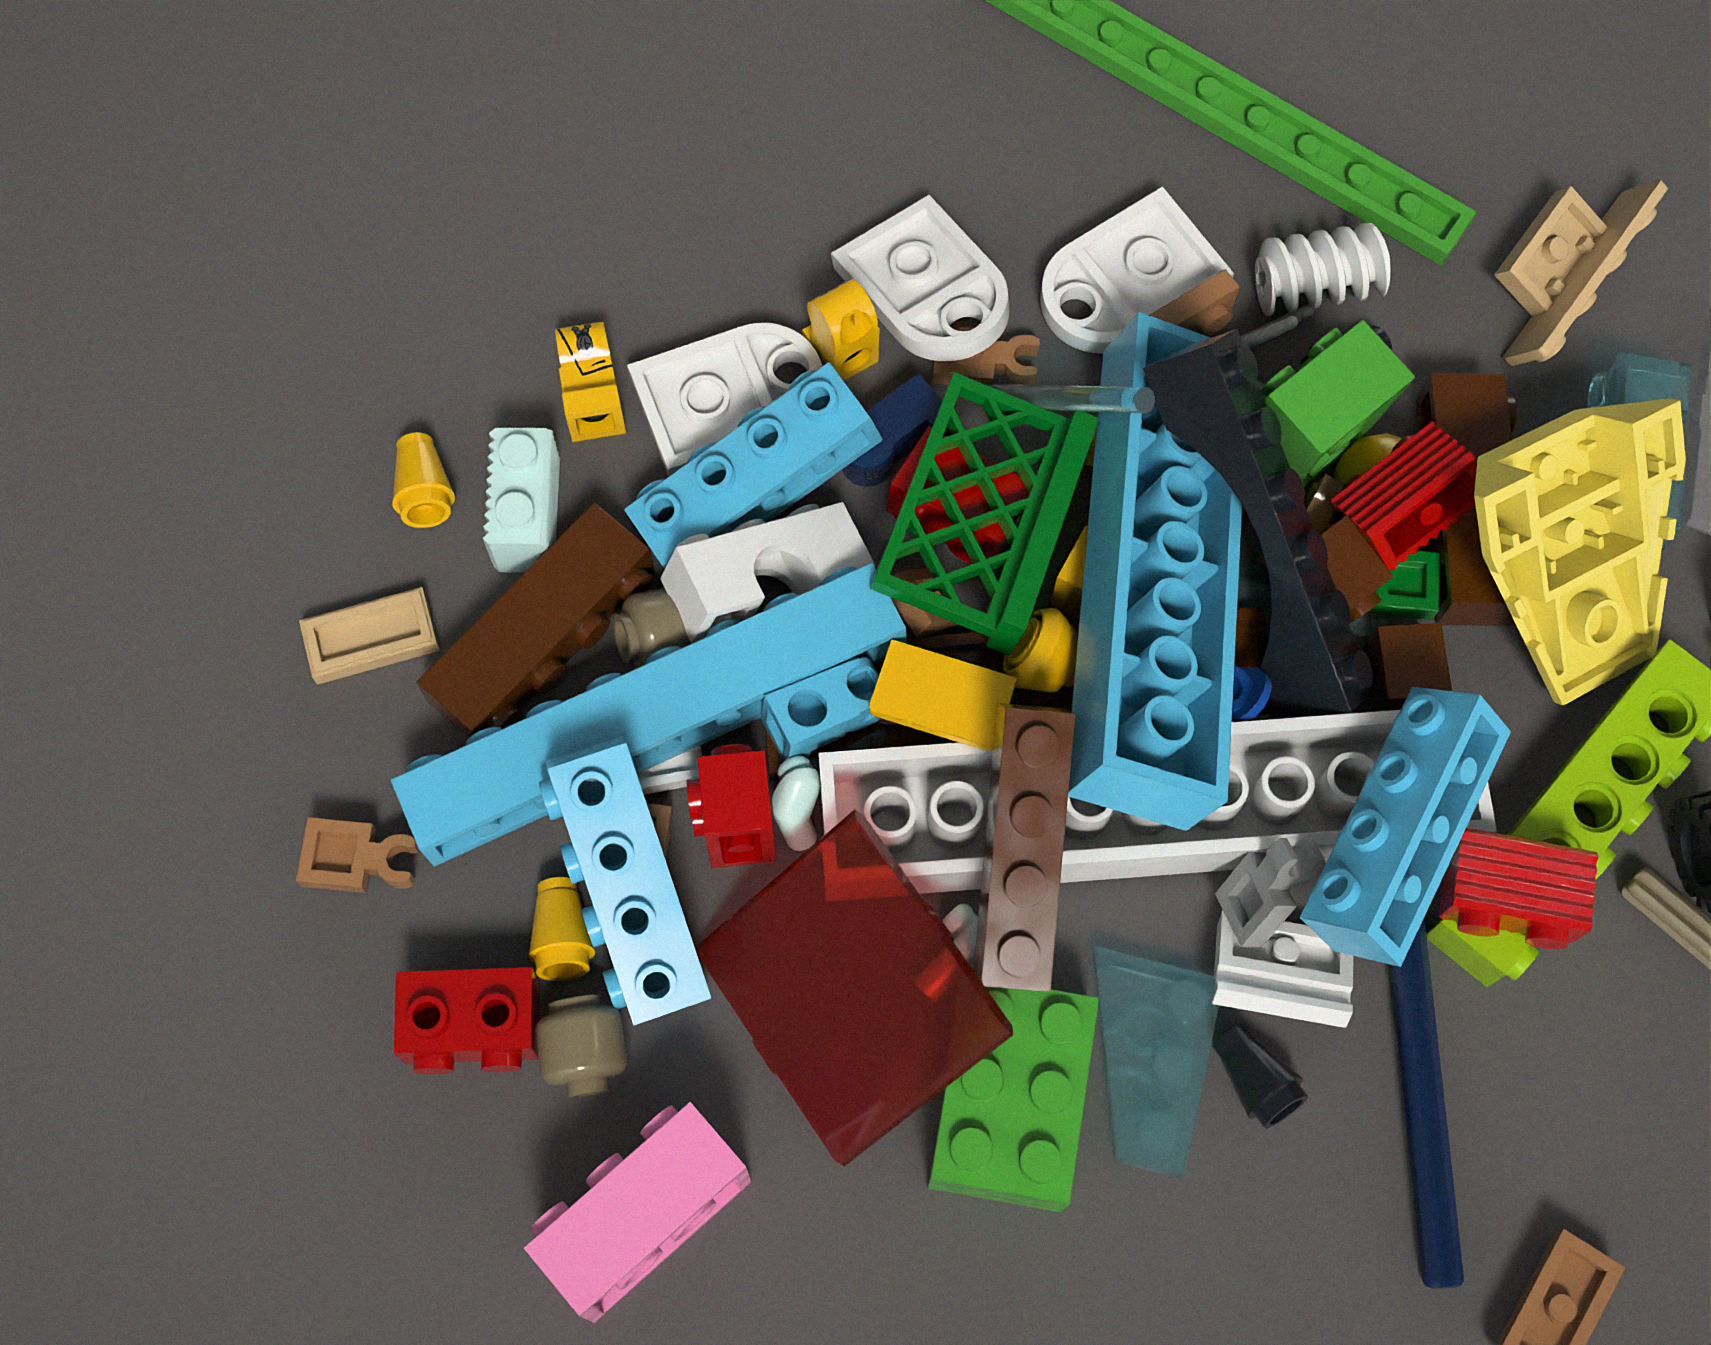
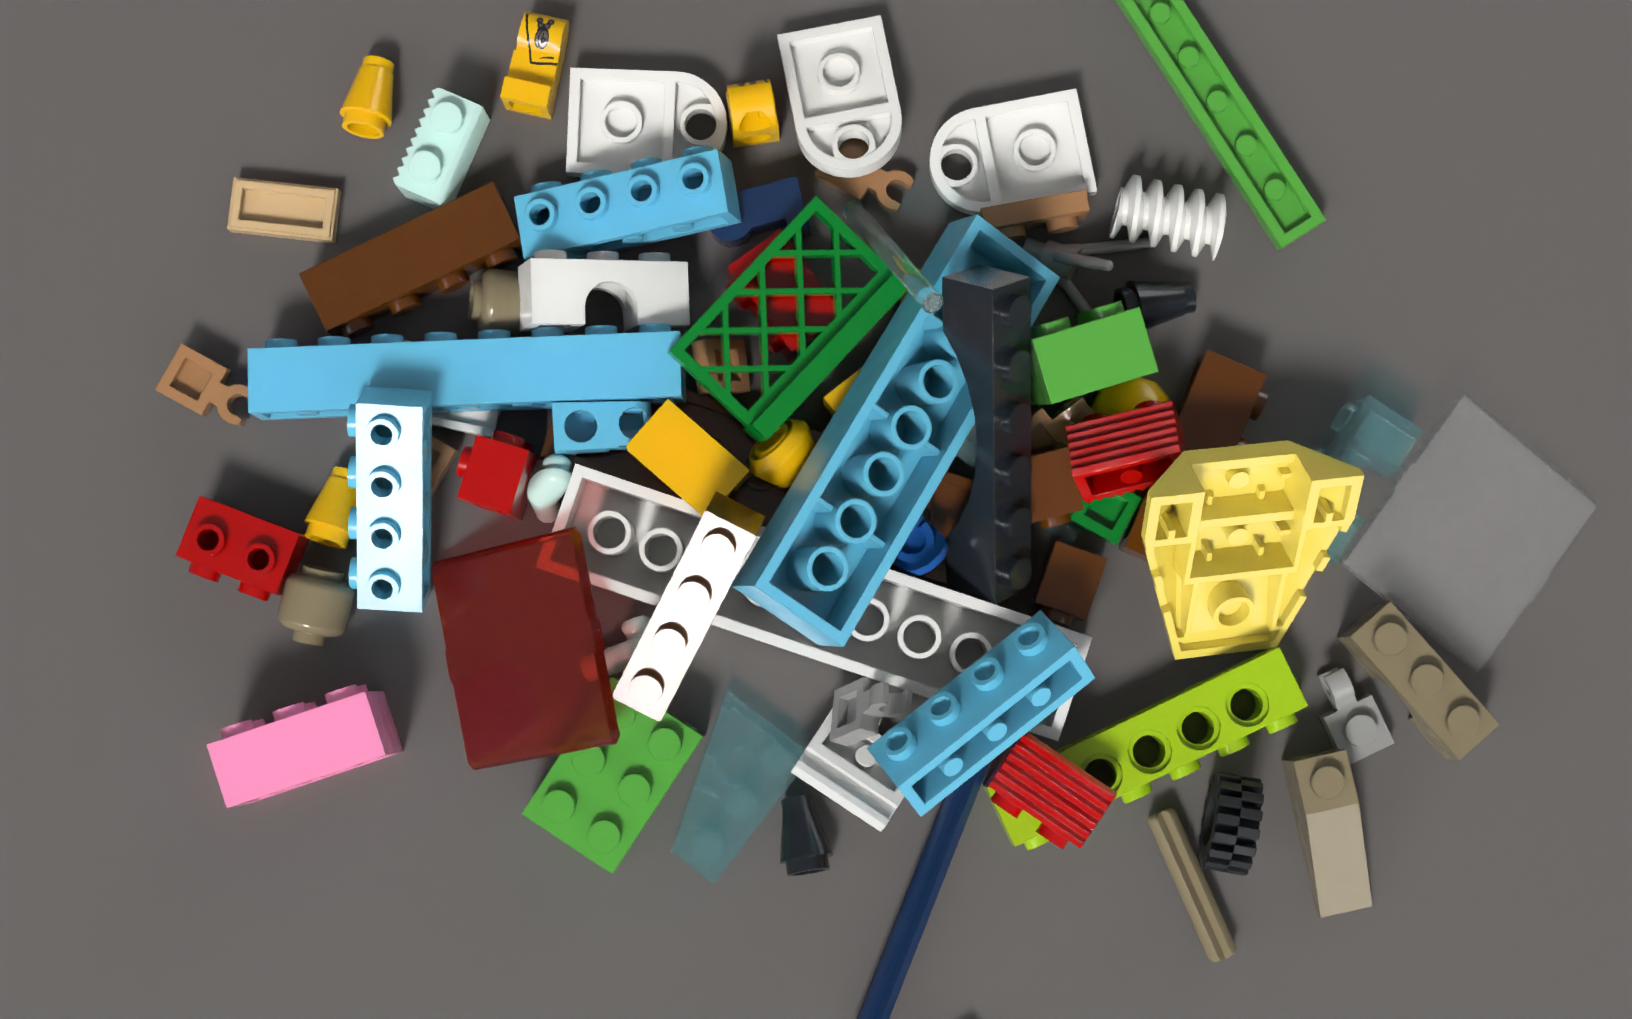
camera: 25 degrees right, 15 degrees up
(1565, 261) = (1380, 291): tan bracket -> none

